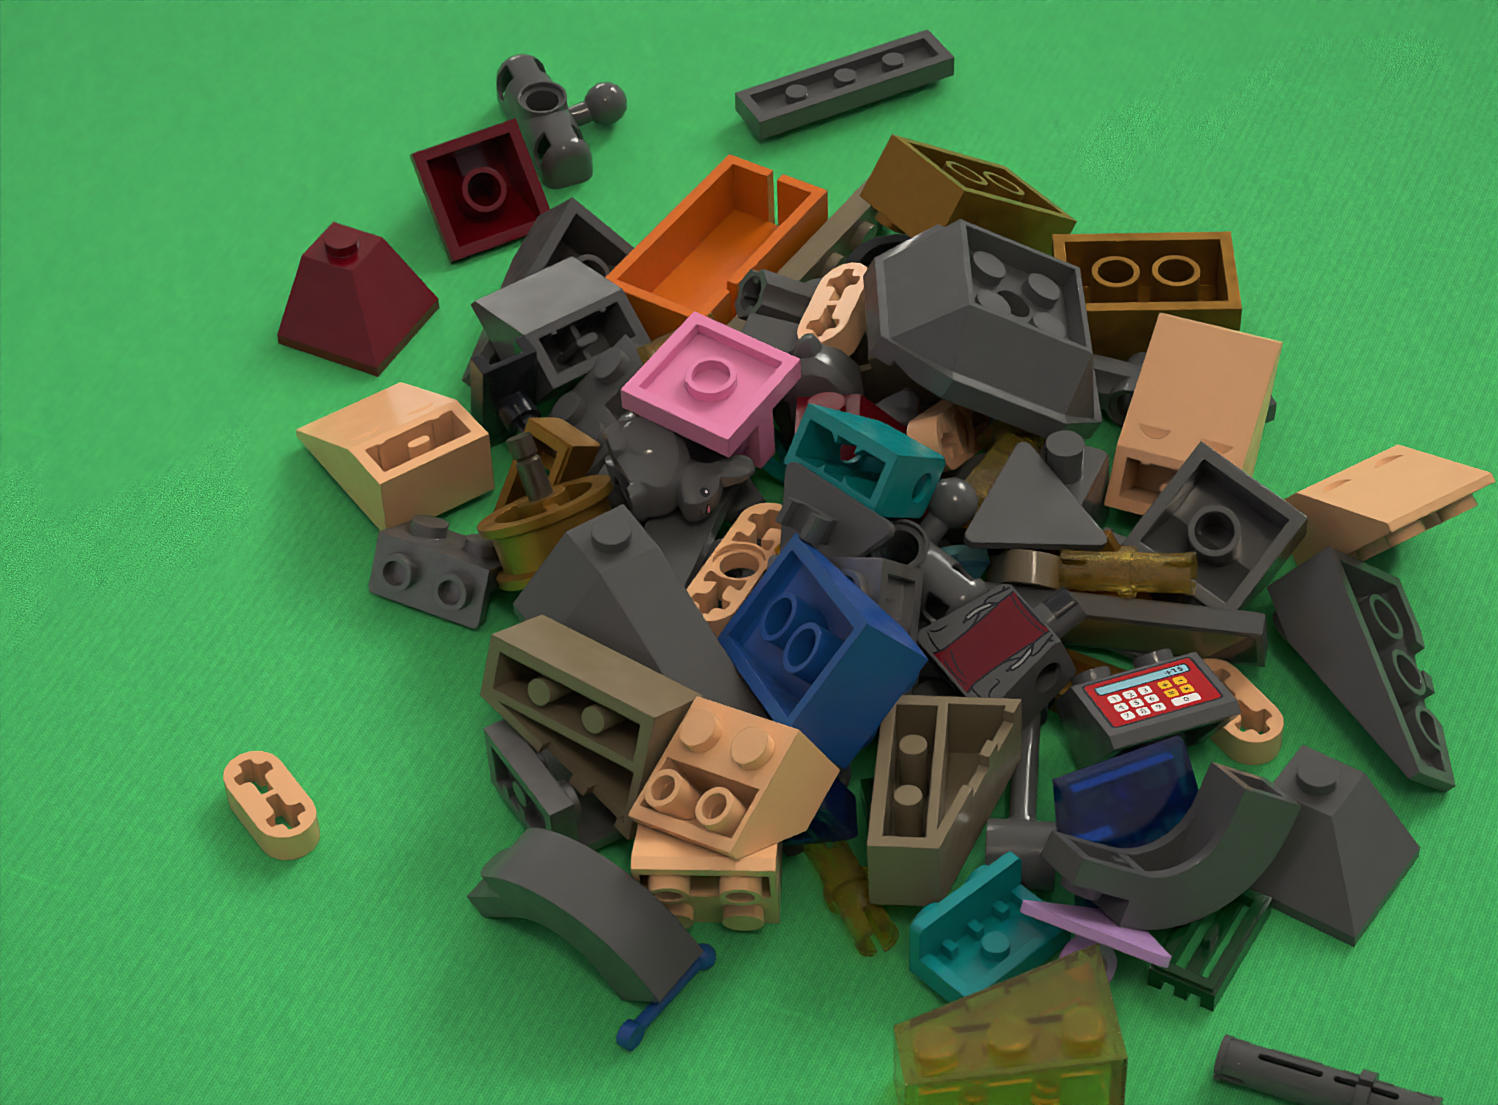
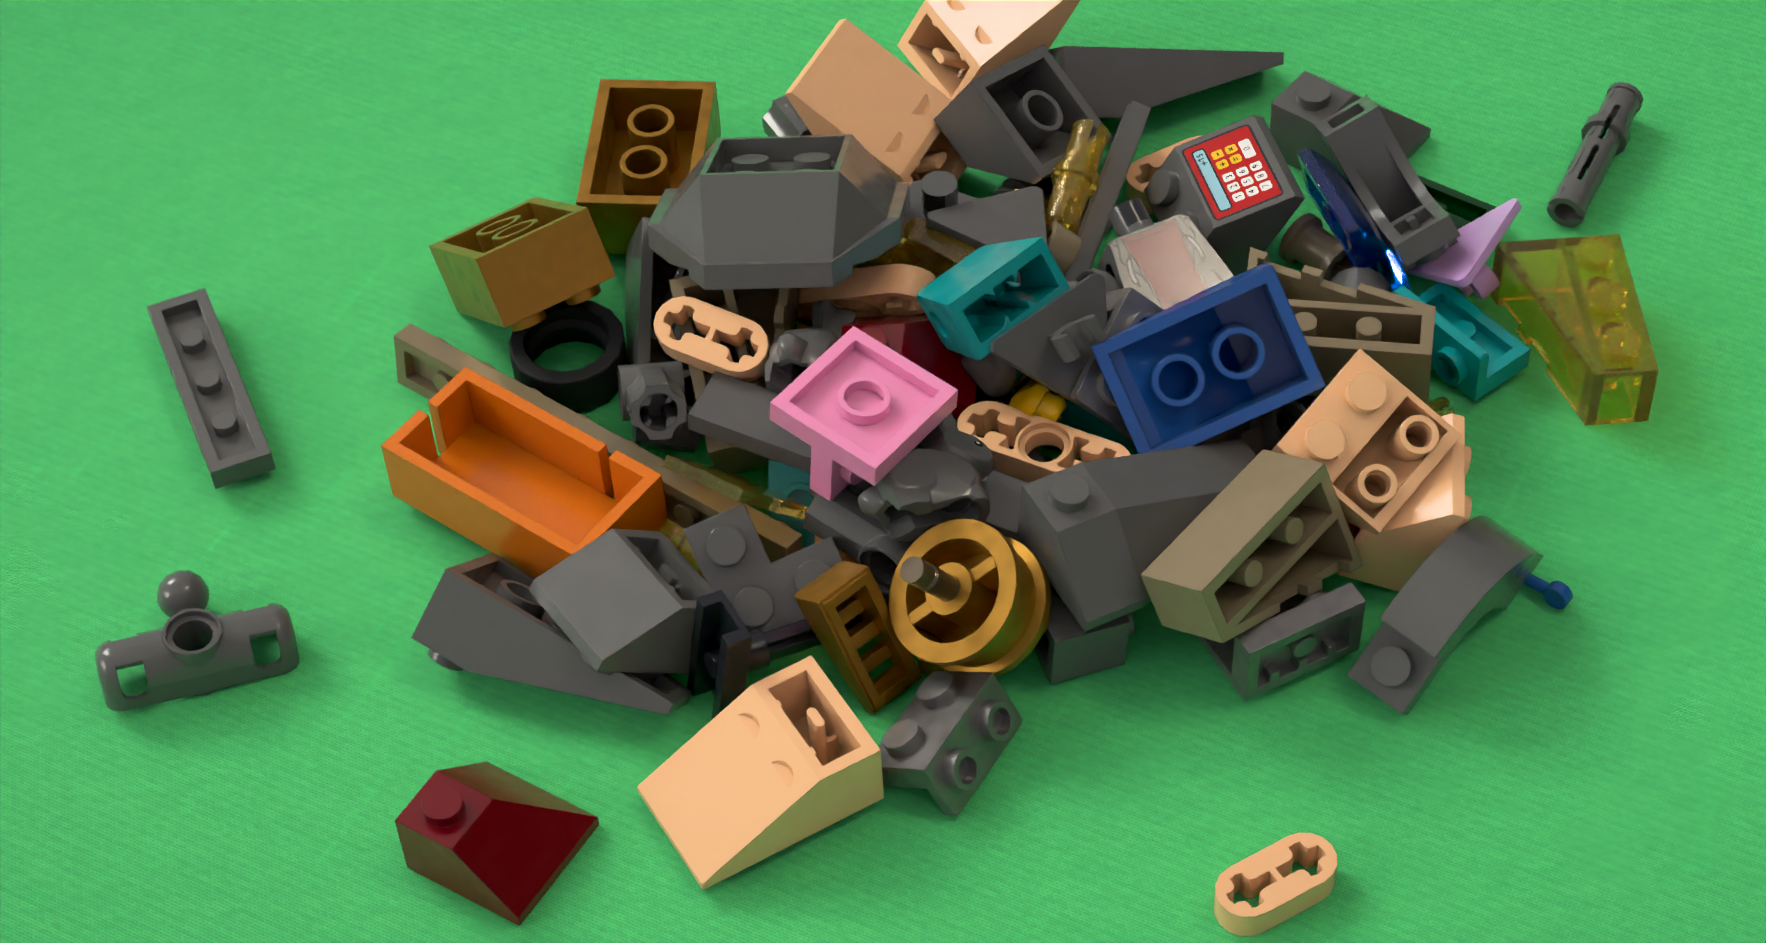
camera: 85 degrees left, 5 degrees up
(481, 189) = (318, 698): dark red slope -> none

